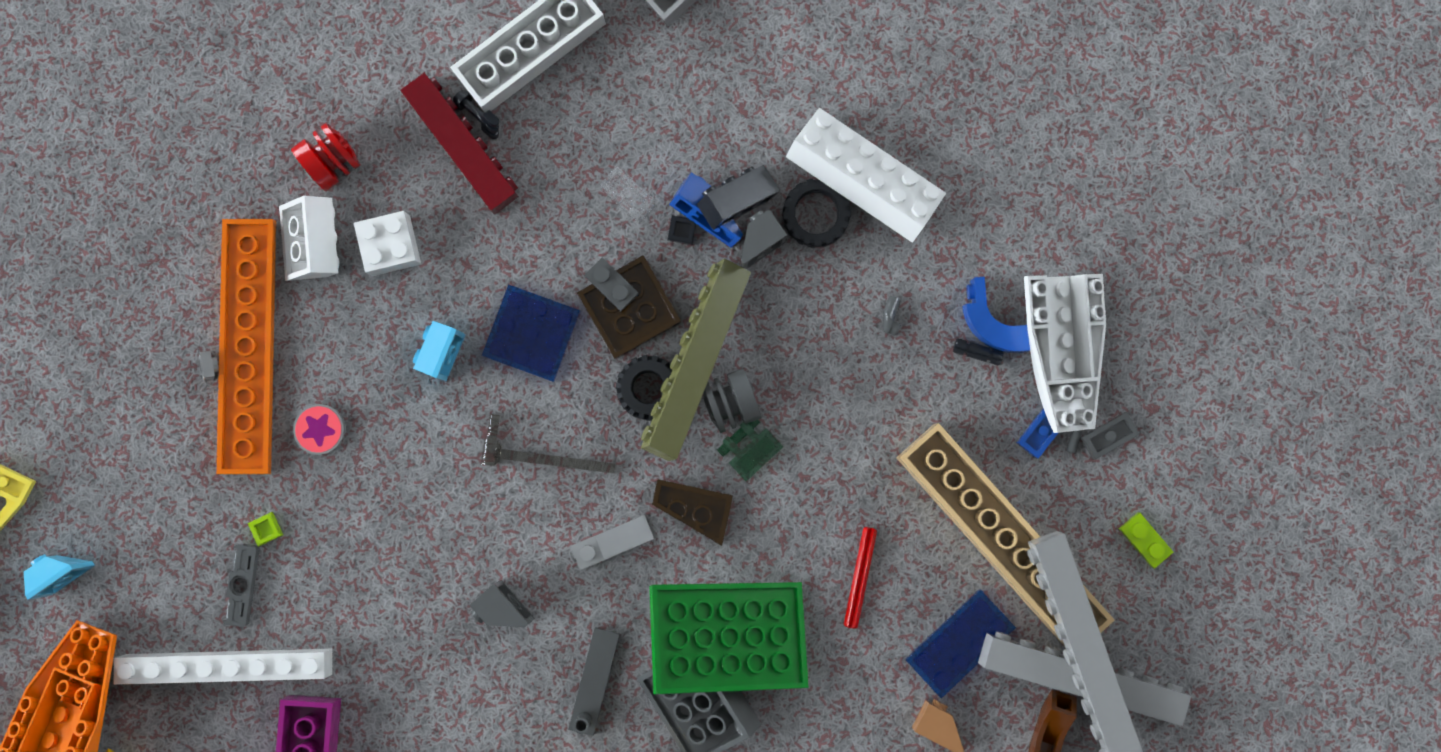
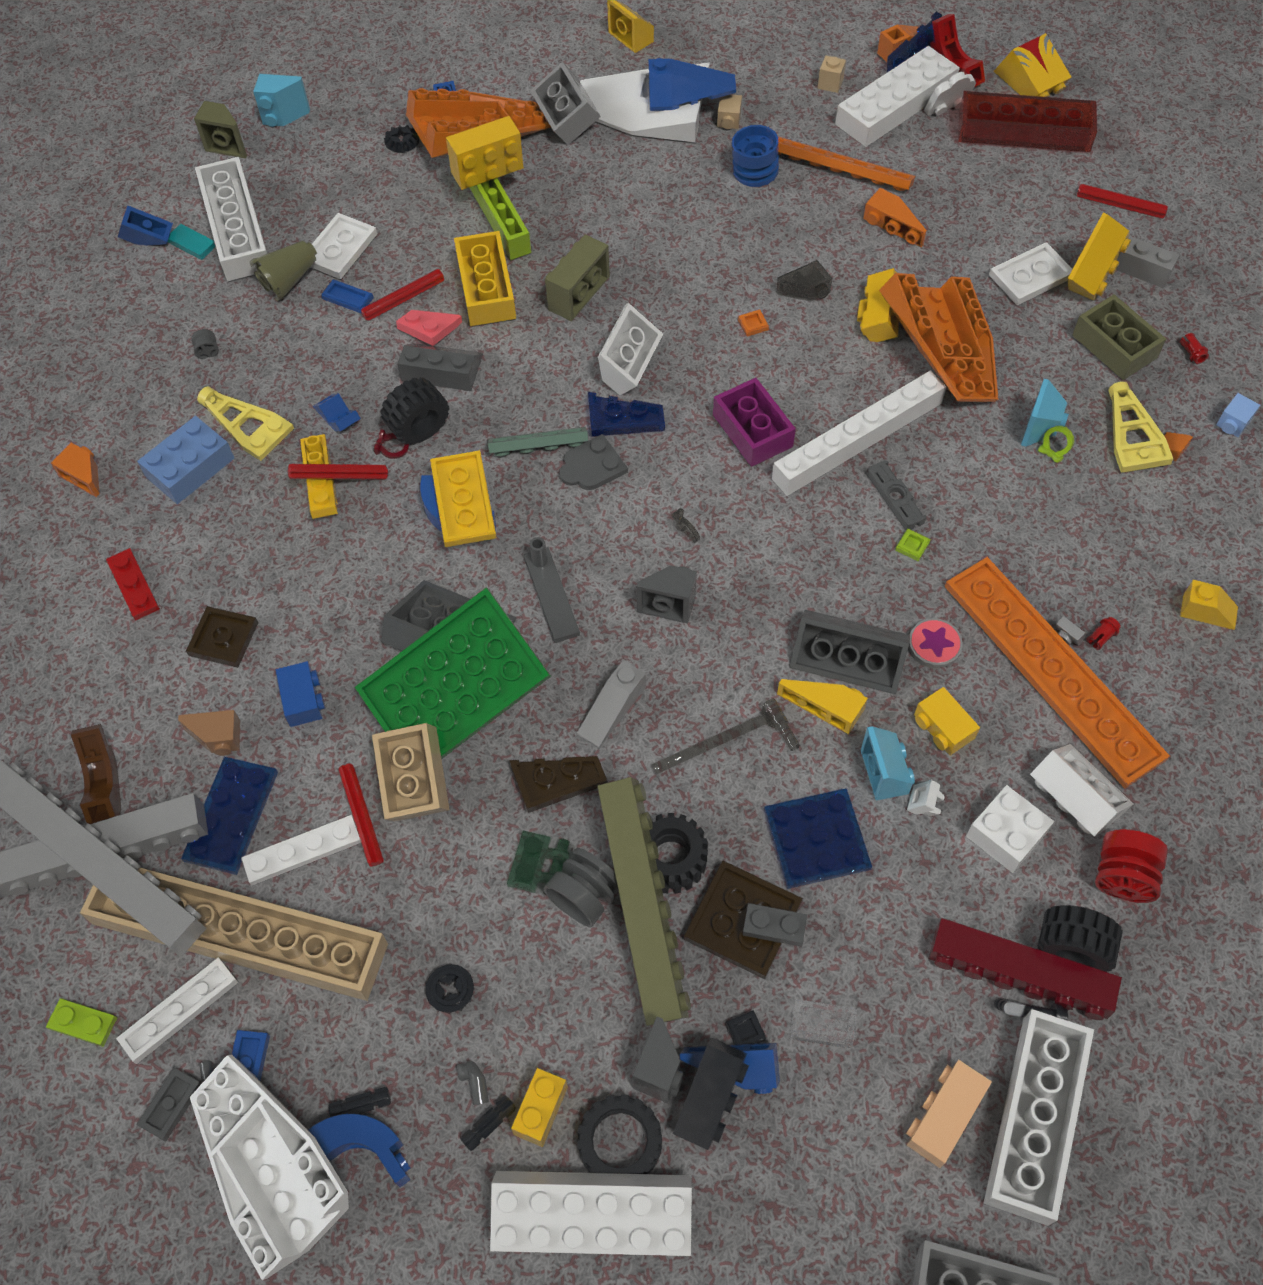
camera: 150 degrees right, 25 degrees down
(75, 533) = (1045, 447): none -> lime piece
(79, 315) = (1209, 605): none -> yellow slope
(182, 348) = (1108, 628): none -> red pin
(365, 356) = (946, 721): none -> yellow brick
(391, 465) = (850, 651): none -> dark grey slope
(407, 131) = (1081, 936): none -> black tyre
(430, 308) = (924, 798): none -> white tile
(439, 428) = (827, 701): none -> yellow slope
(441, 680) = (681, 525): none -> clear smoke piece
(586, 87) = (947, 1112): none -> light nougat brick
(806, 579) = (410, 772): none -> tan brick
(853, 717) = (299, 693): none -> blue brick
(857, 266) = (539, 1107): none -> yellow brick
(882, 397) = (446, 975): none -> black gear
(897, 282) = (488, 1123): none -> black axle
(921, 576) = (301, 850): none -> white plate
(1073, 503) = (176, 1010): none -> white plate

